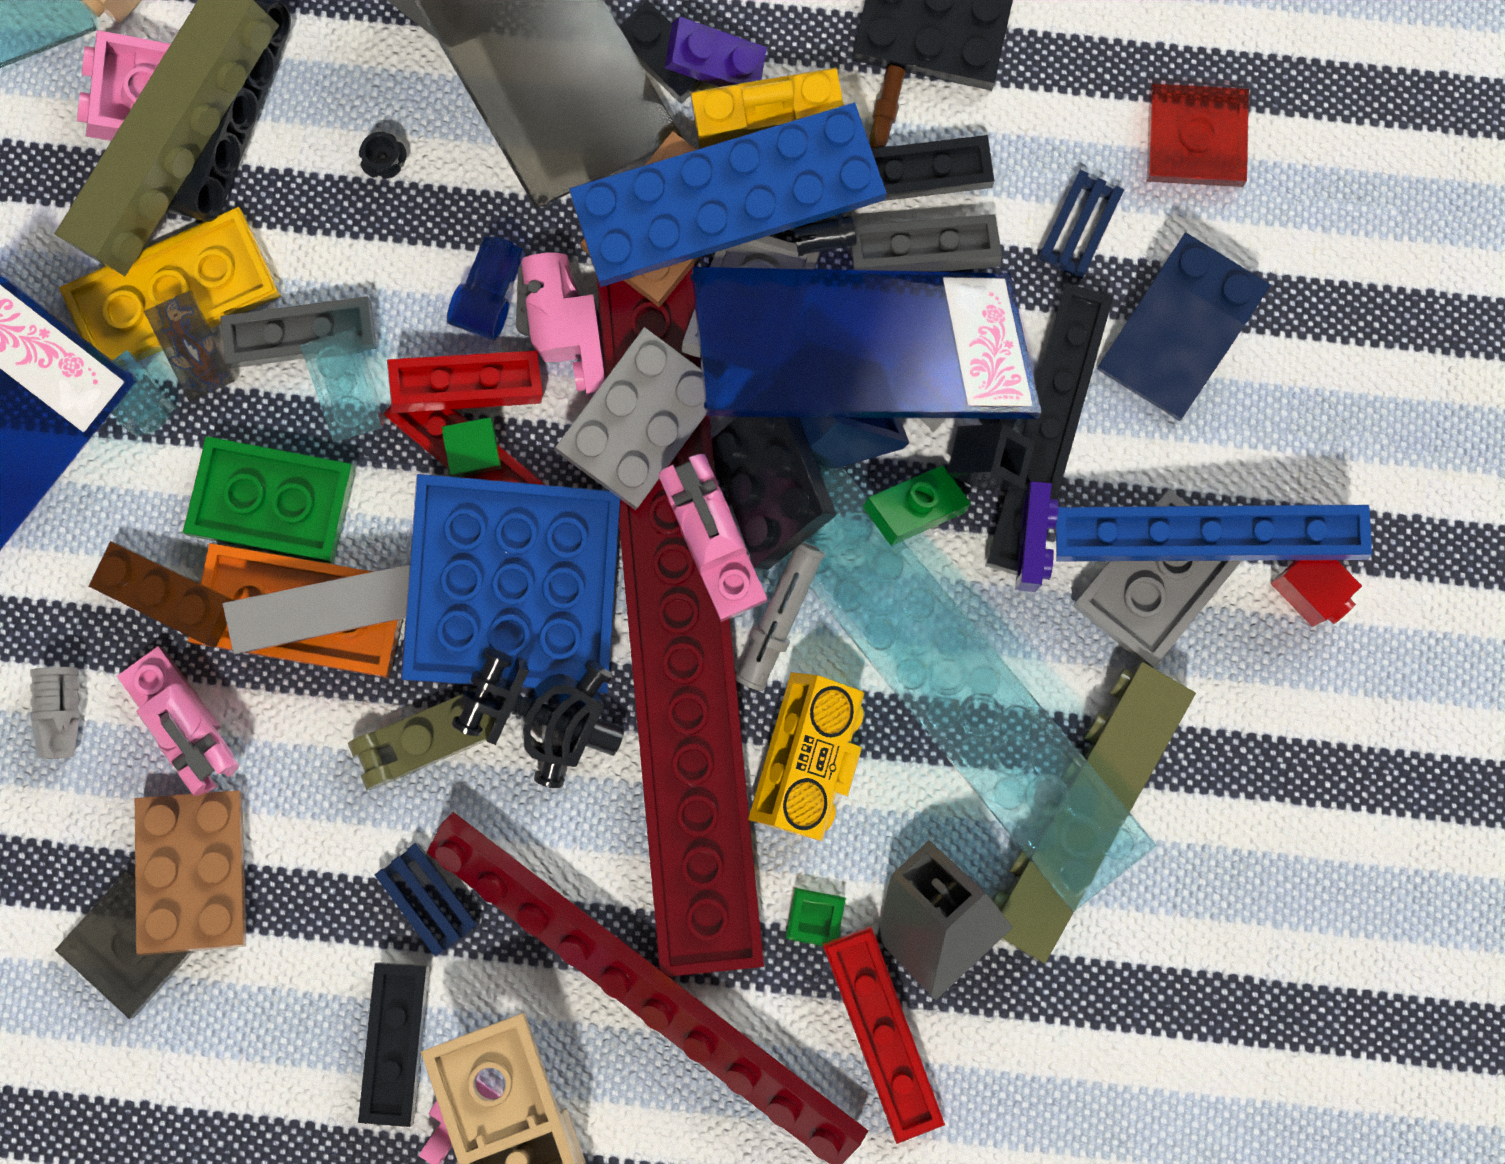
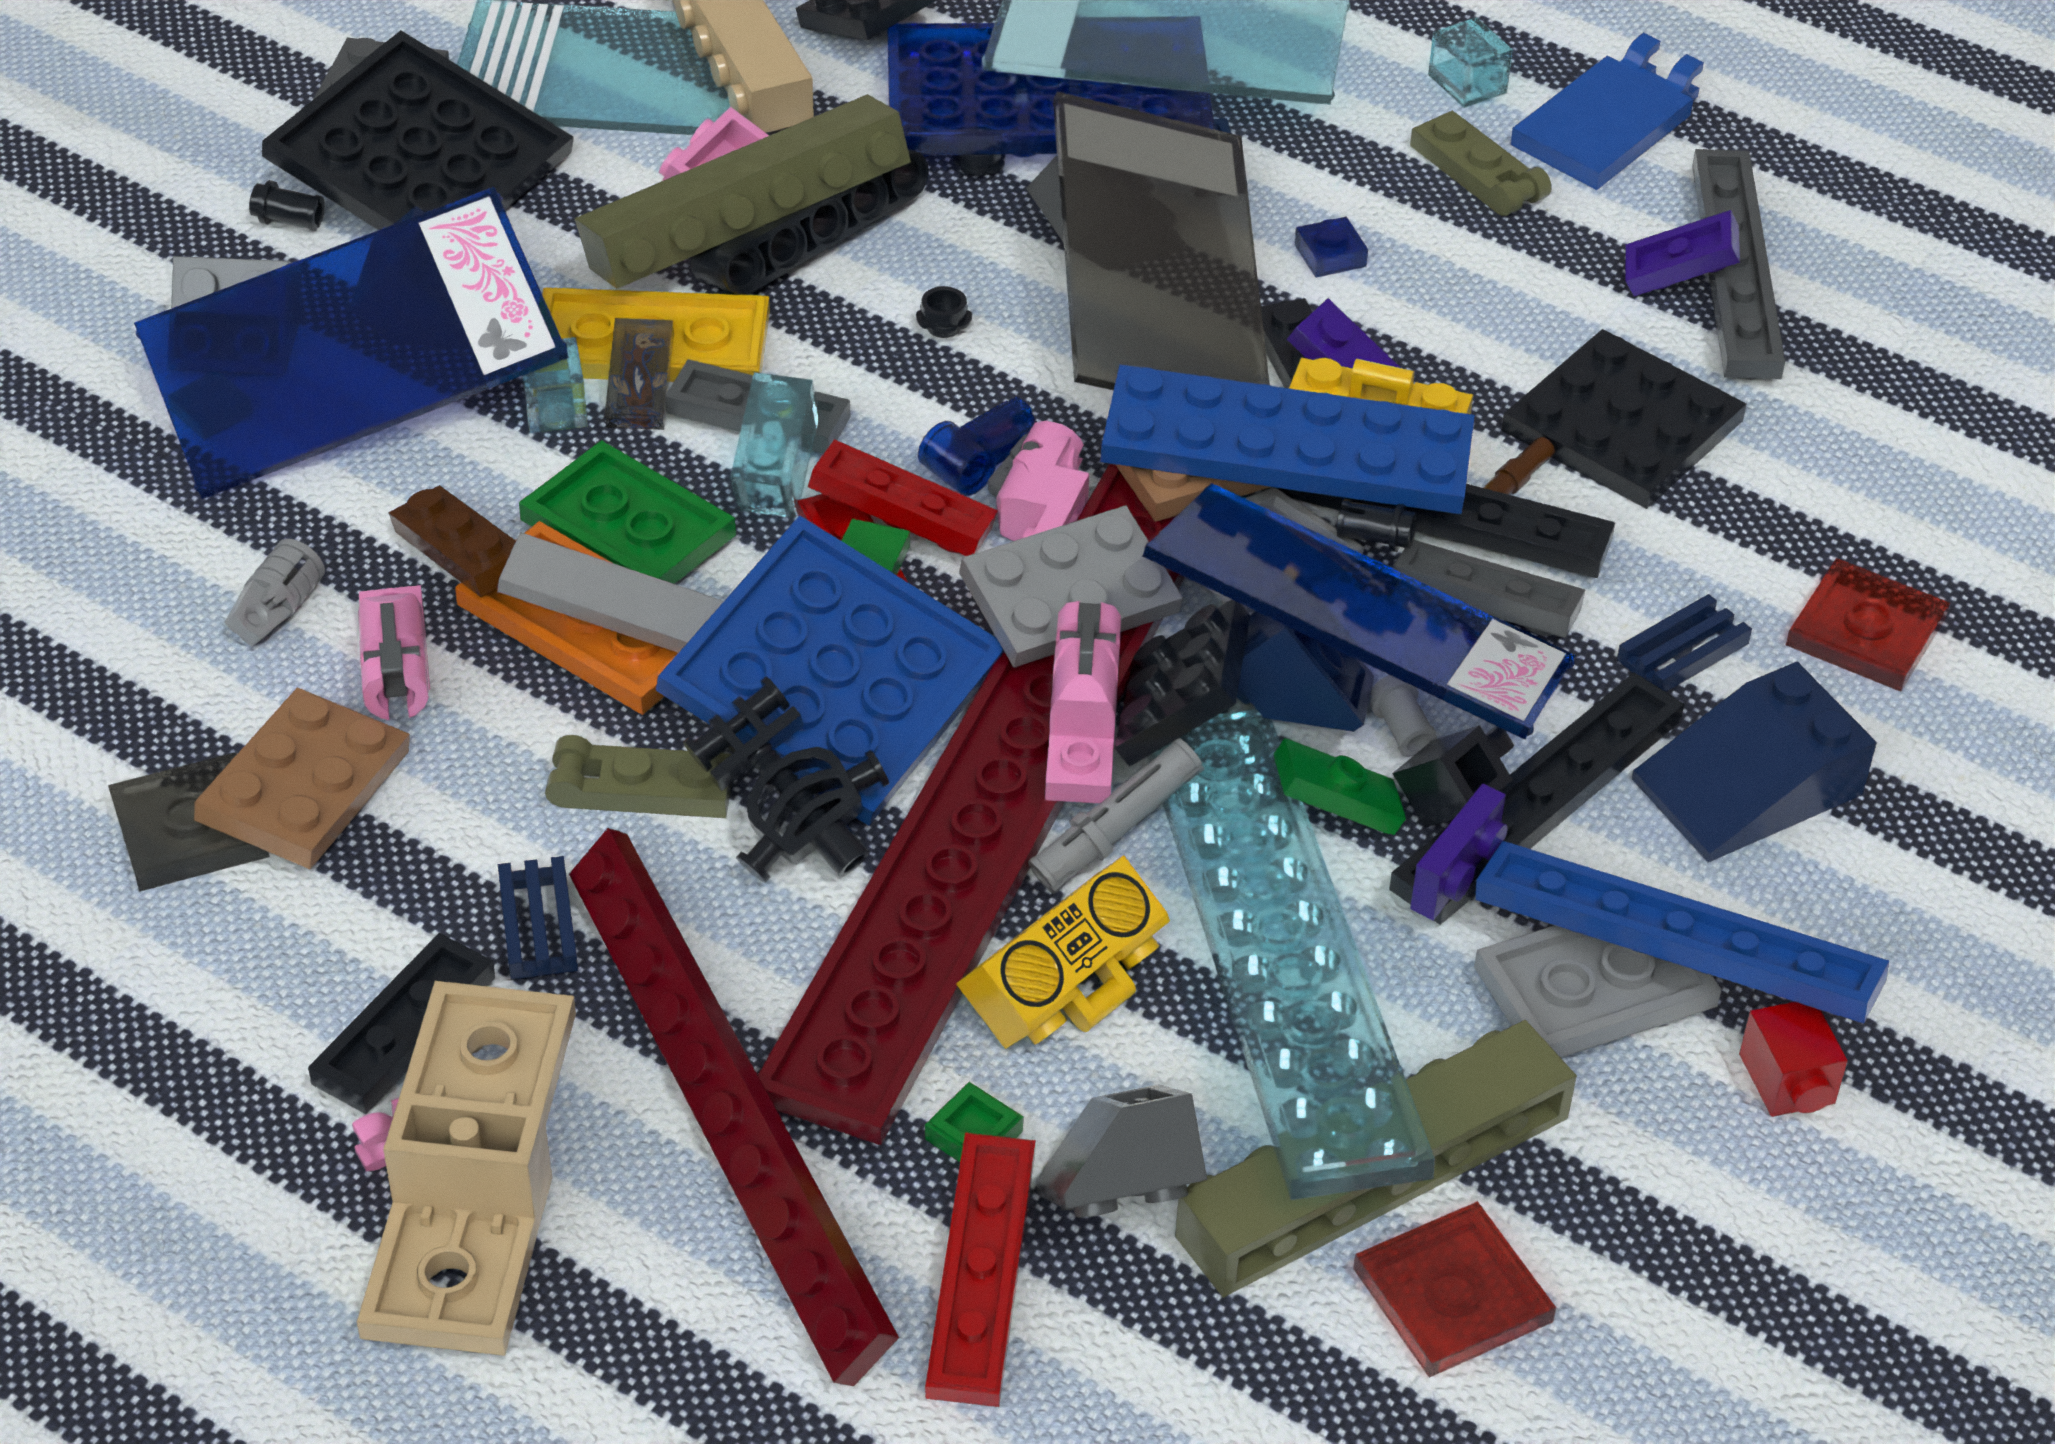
camera: 25 degrees right, 35 degrees down
(1182, 884) = (1454, 1289): none -> clear red tile

